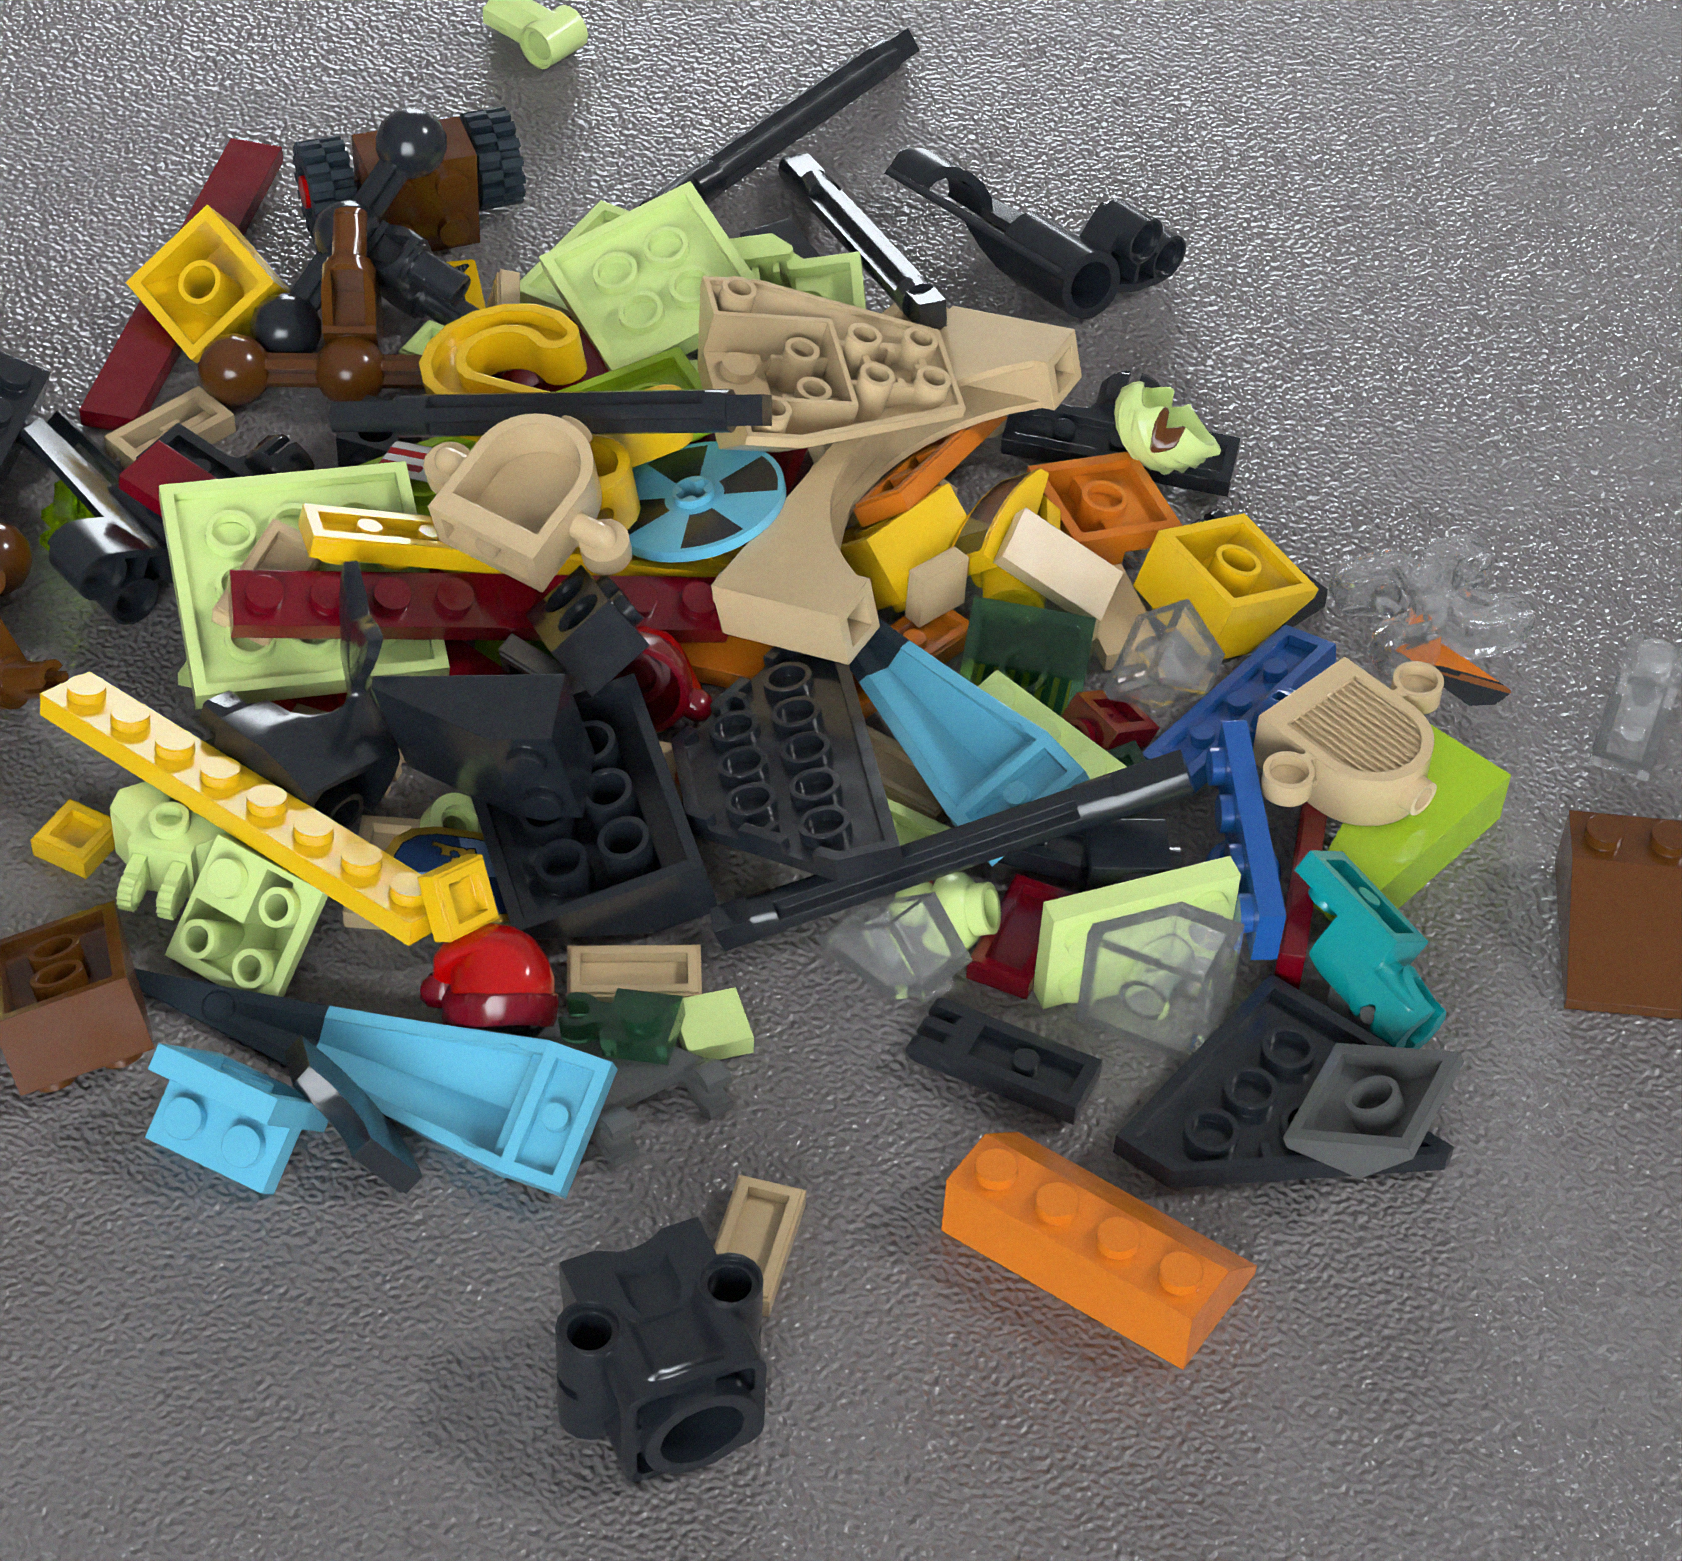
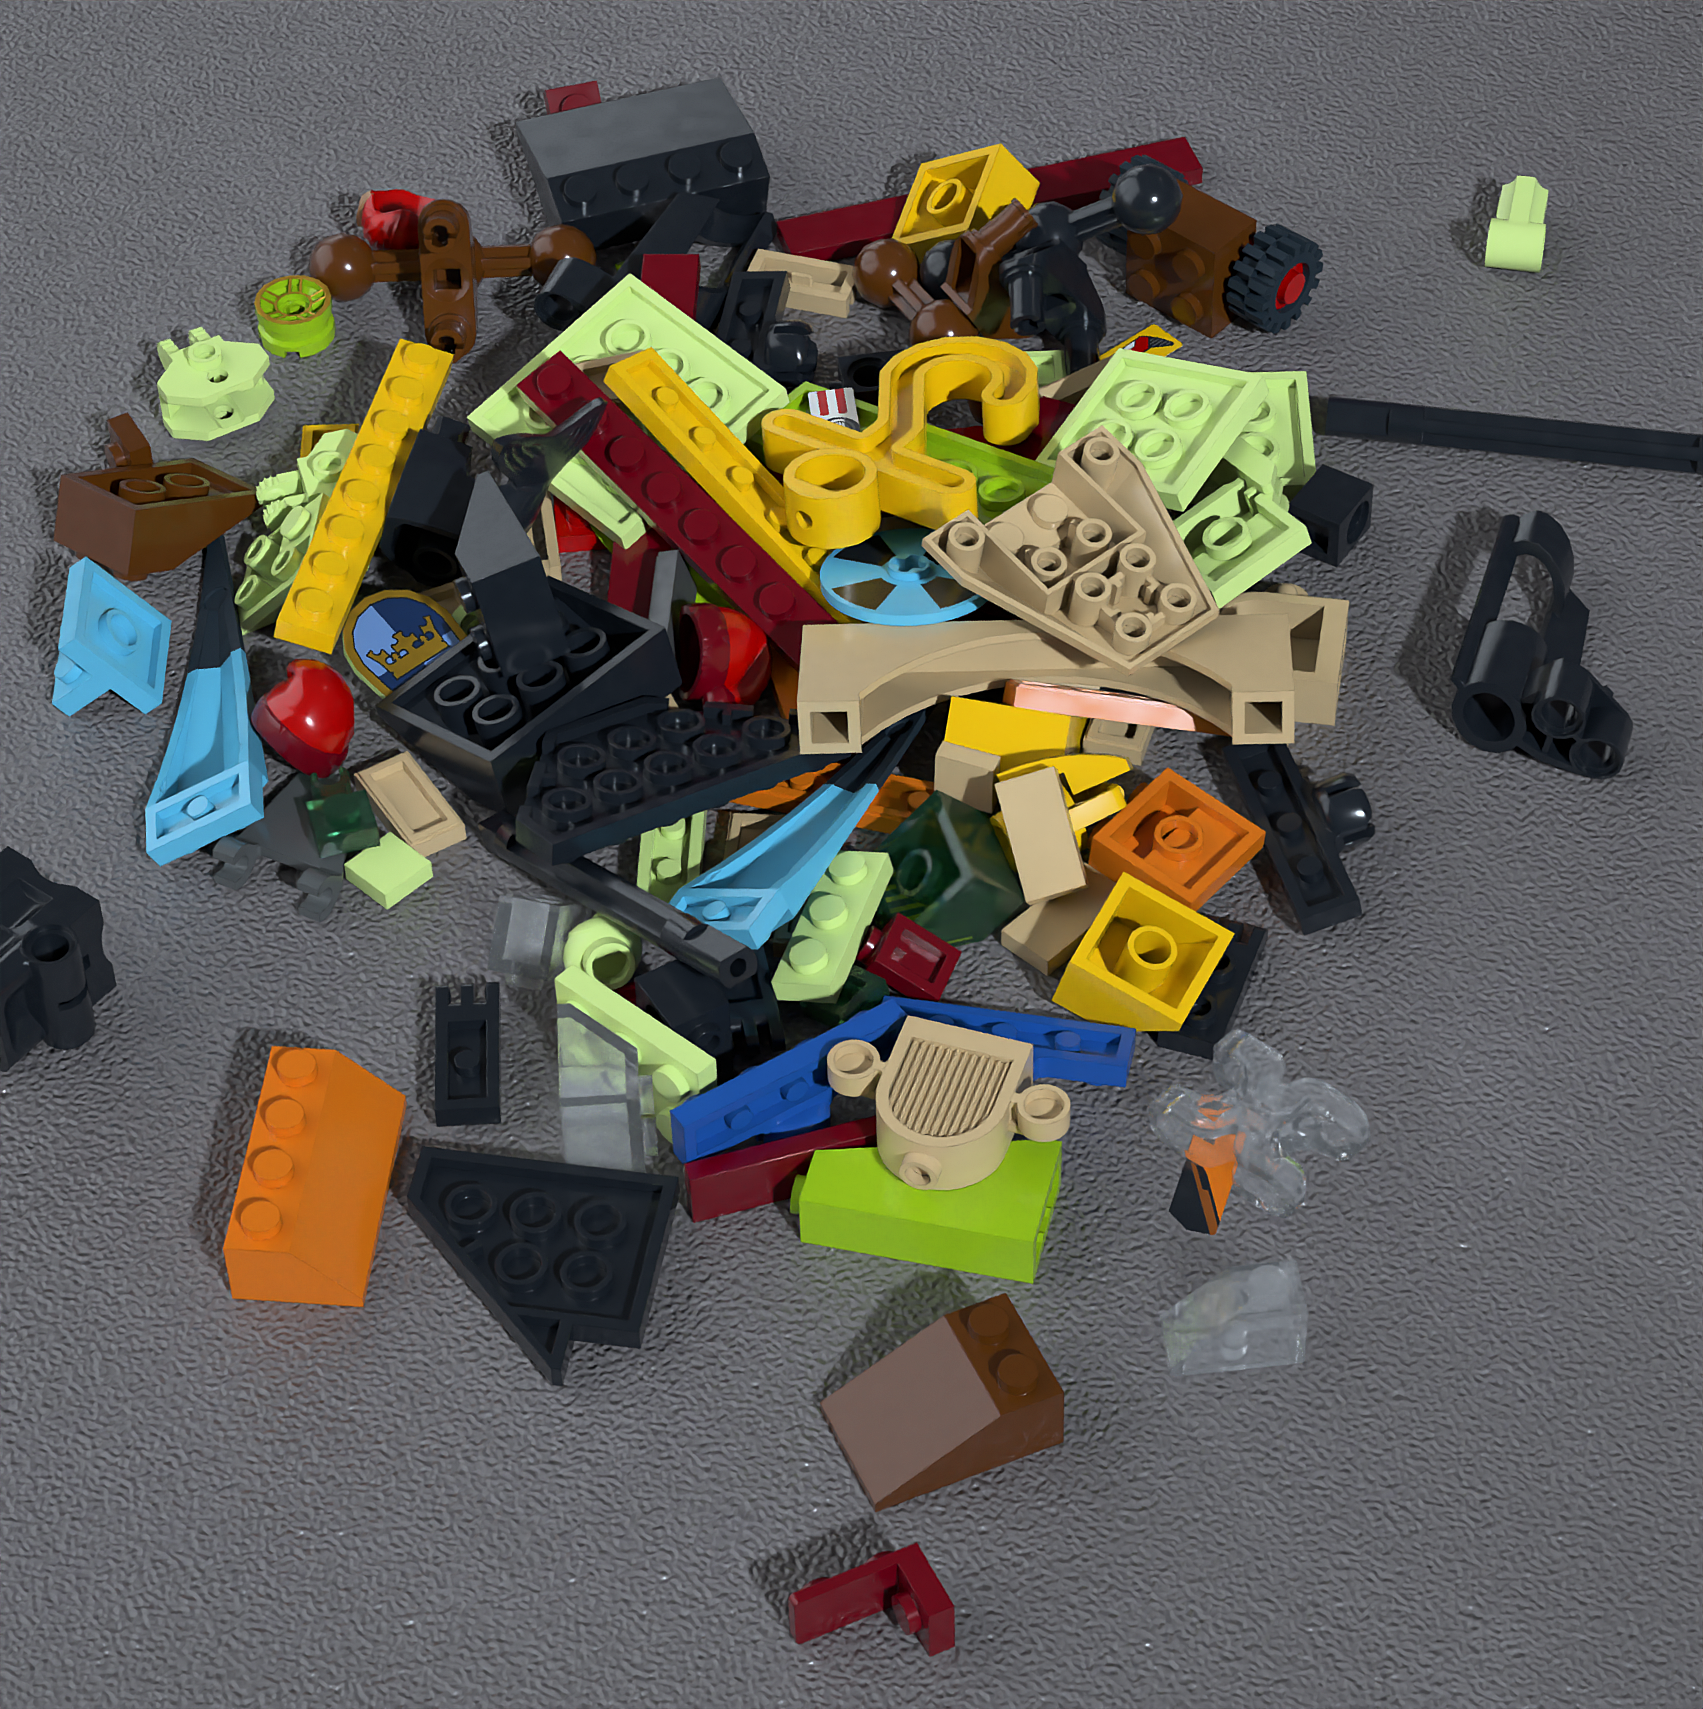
camera: 65 degrees right, 0 degrees up
(353, 1114) = (147, 708): black tile -> none
(458, 897) = (324, 633): yellow tile -> none
(525, 500) = (745, 458): tan piece -> none
(589, 628) = (679, 575): black brick -> none
(598, 410) = (872, 429): black piece -> none
(763, 1227) = (184, 989): tan tile -> none
(855, 231) = (1299, 571): black piece -> none
(1160, 434) = (1291, 828): yellowish green hair -> none
(1165, 658) = (999, 959): clear slope -> none
(1369, 954) = (736, 1221): teal plate -> none
(1372, 1106) = (546, 1281): dark grey slope -> none

